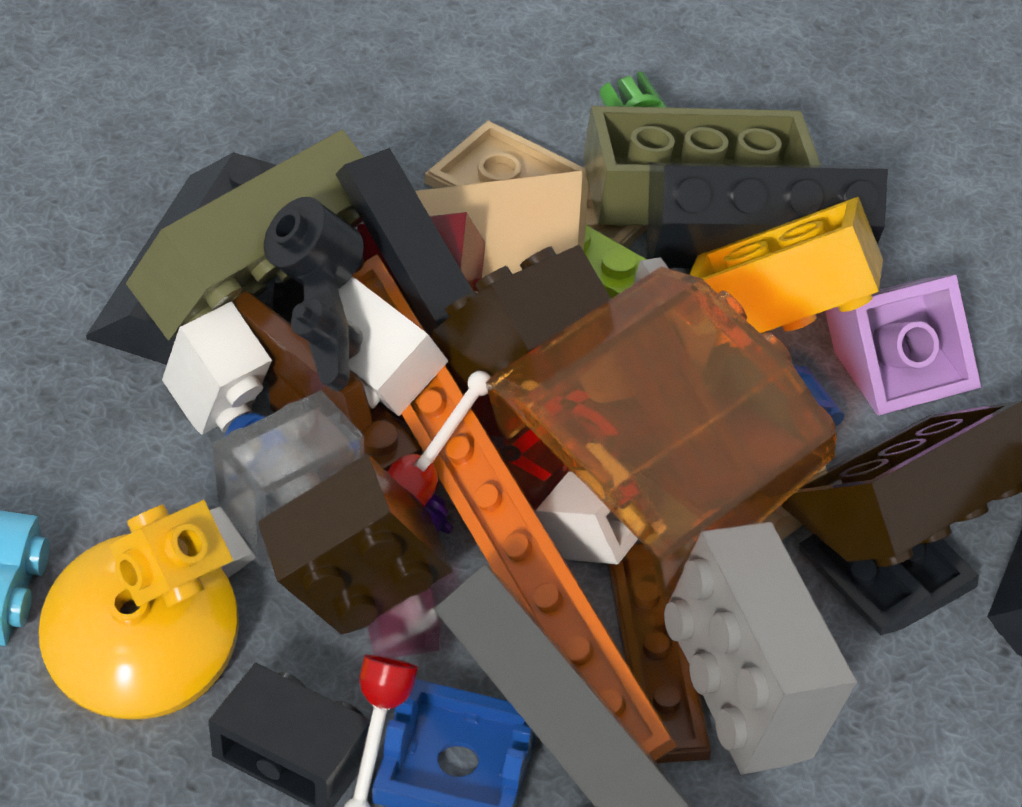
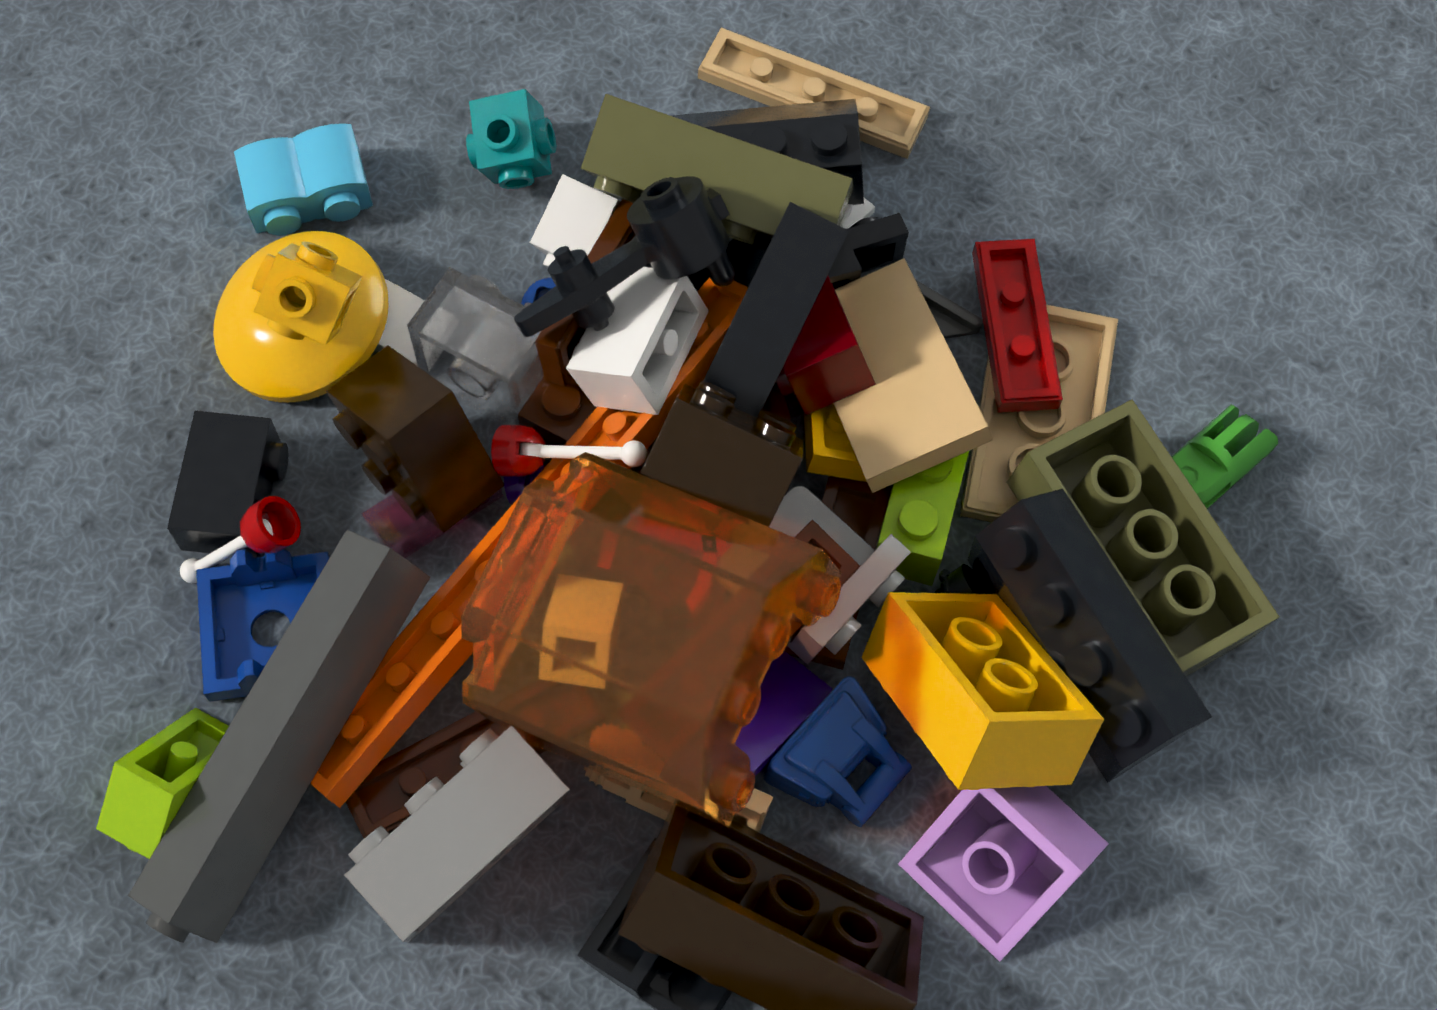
camera: 65 degrees right, 20 degrees up
(64, 401) = (510, 139): none -> teal brick
(121, 223) = (785, 79): none -> tan tile
(449, 163) = (1016, 326): none -> red tile

